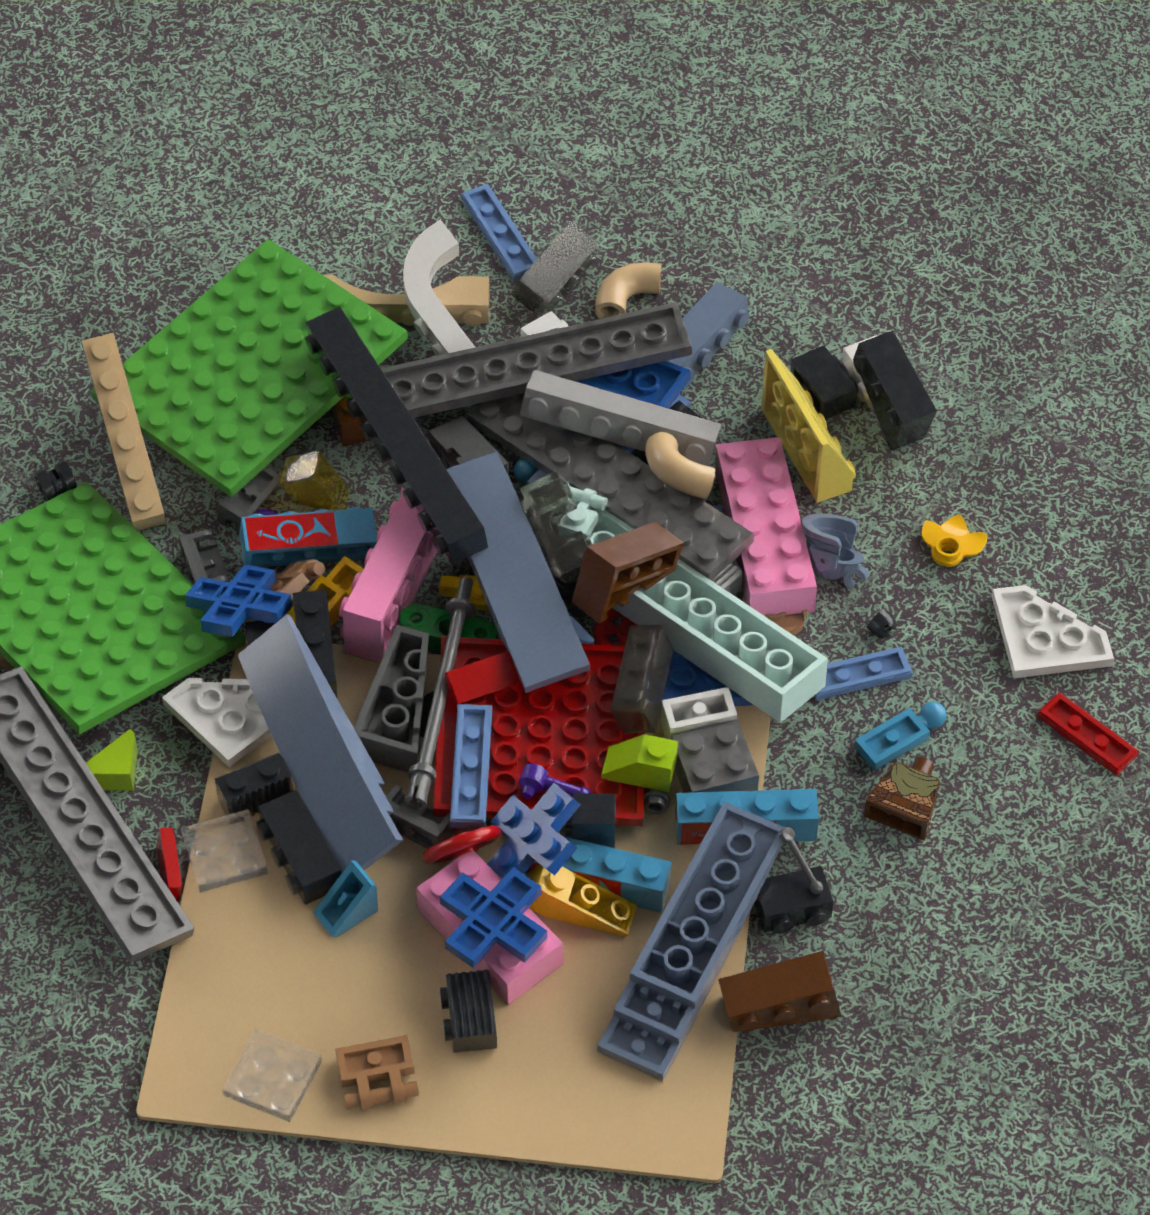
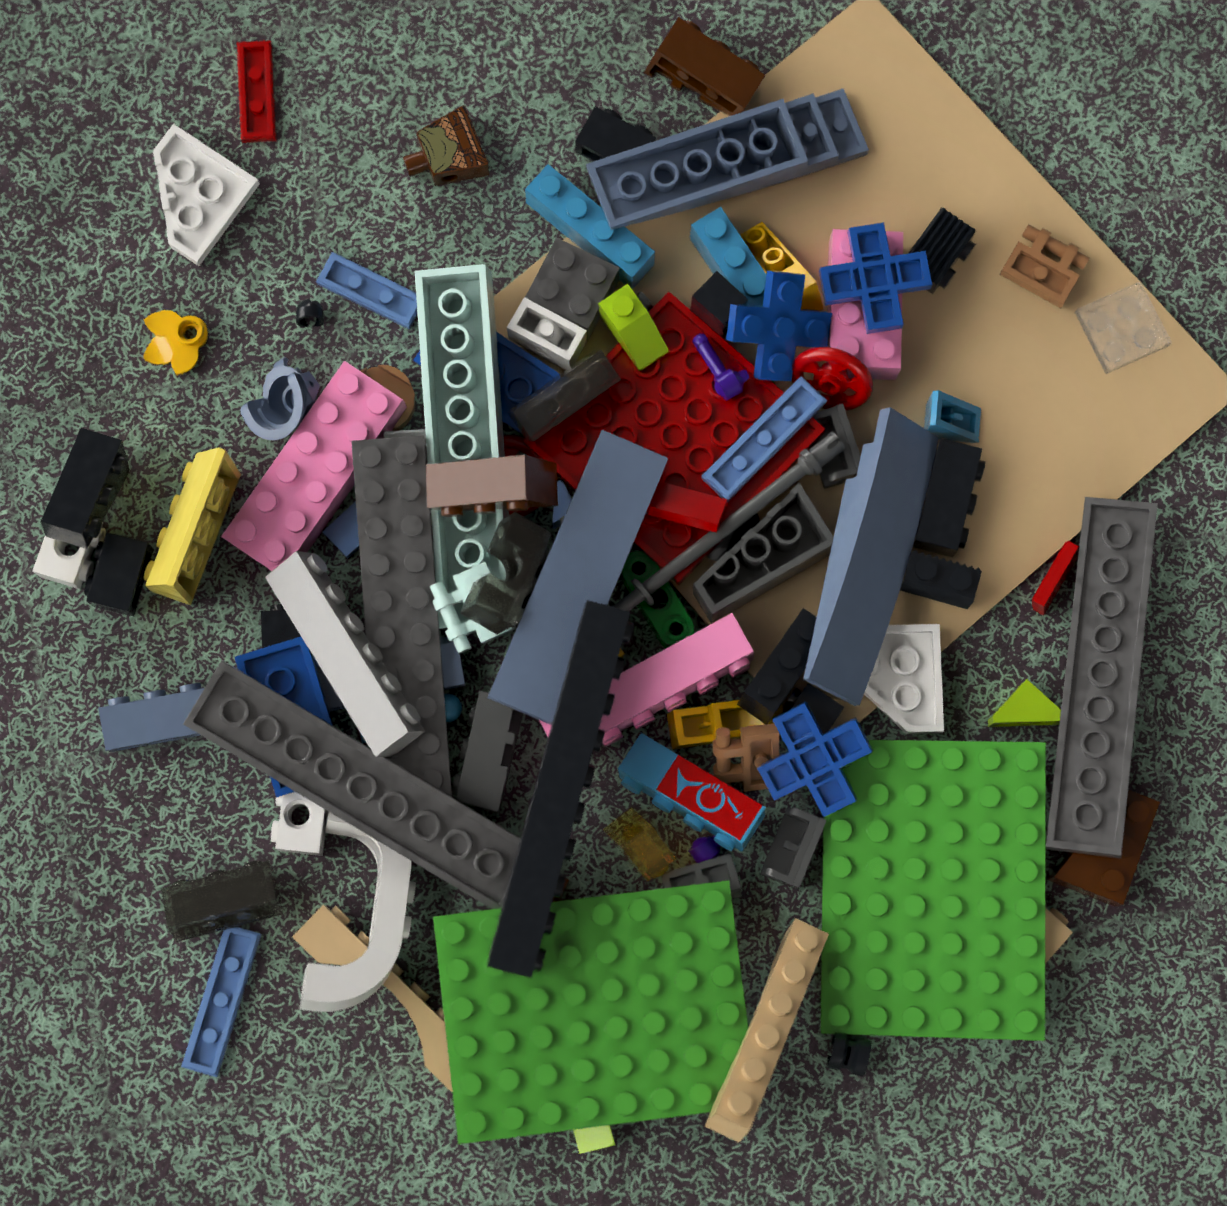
camera: 140 degrees left, 25 degrees up
(224, 850) = (1007, 547): clear plate -> none
(624, 283) = (175, 832): tan cylinder -> none
(676, 469) = (359, 550): tan cylinder -> none
(787, 835) = (593, 157): dark grey hinge -> none
(899, 734) = (397, 208): dark azure plate -> none

